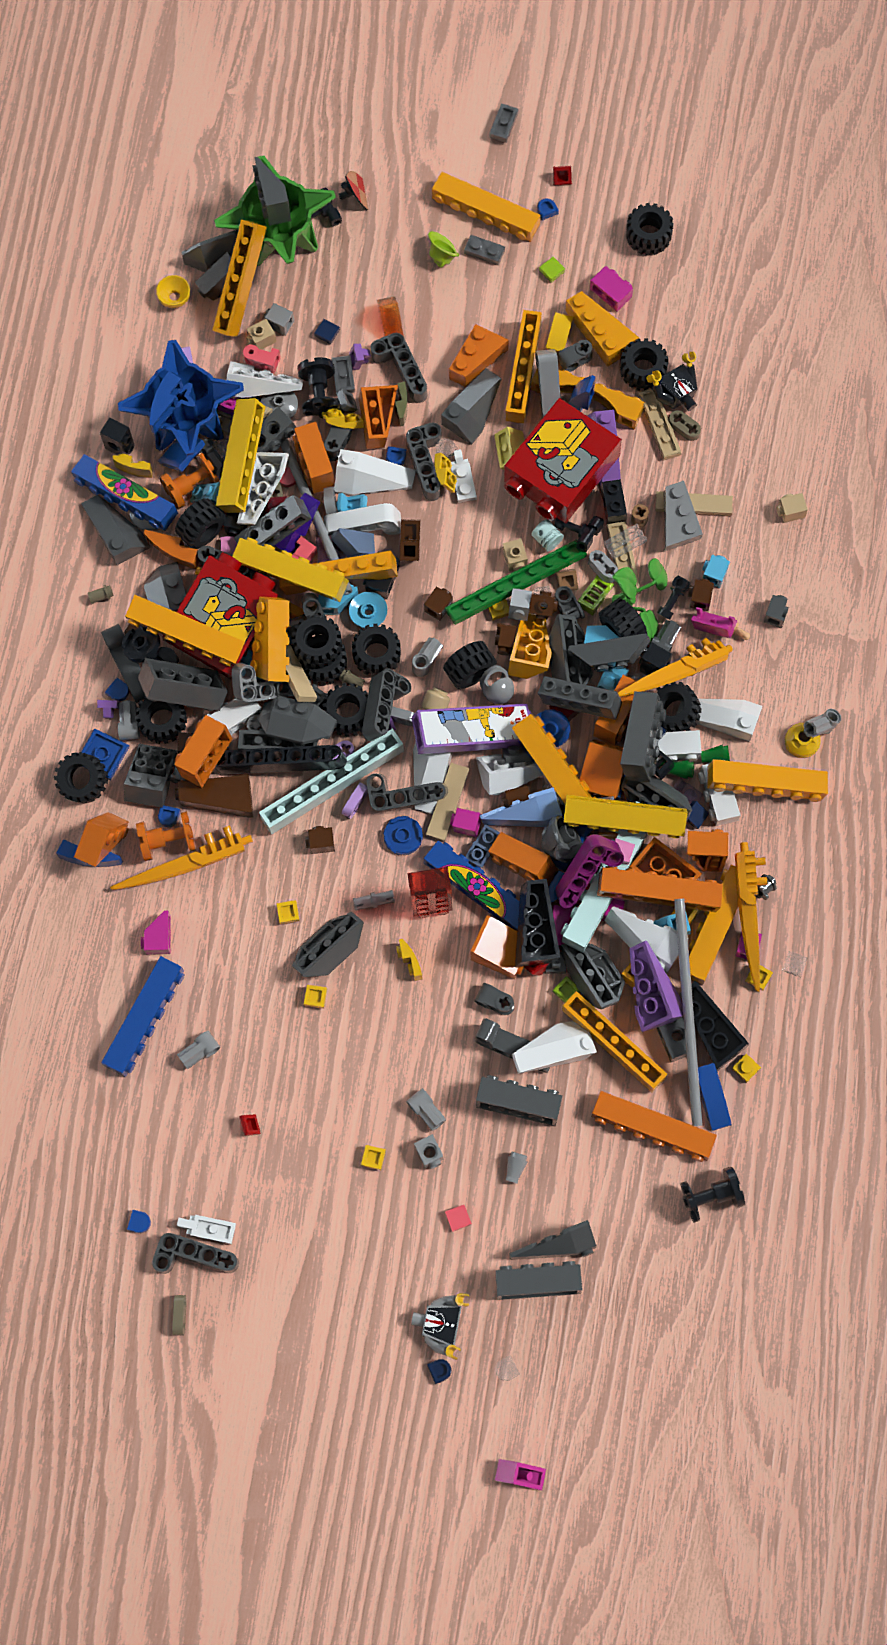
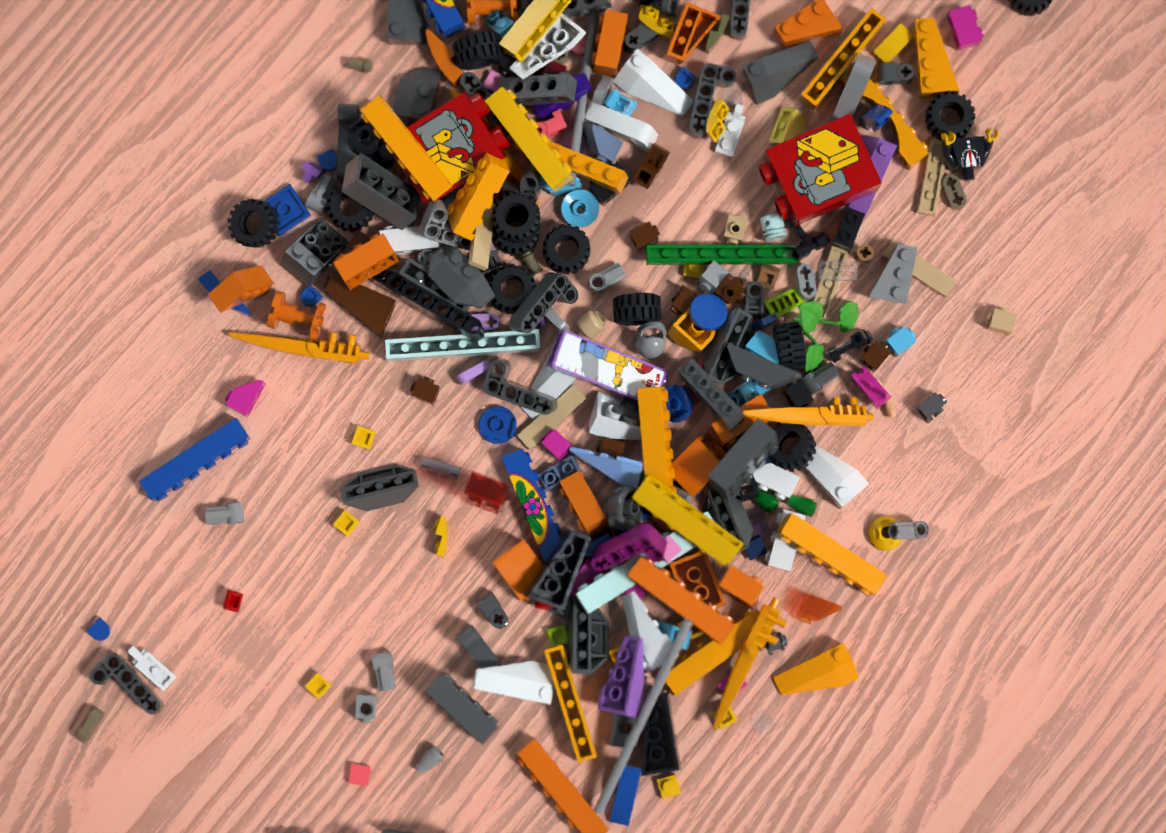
camera: 25 degrees right, 10 degrees up
(534, 633) = (708, 312): none -> blue tile
(588, 616) = (764, 322): none -> dark blue tile
(782, 836) = (814, 609): none -> clear orange slope
(822, 888) = (824, 671): none -> light orange wedge

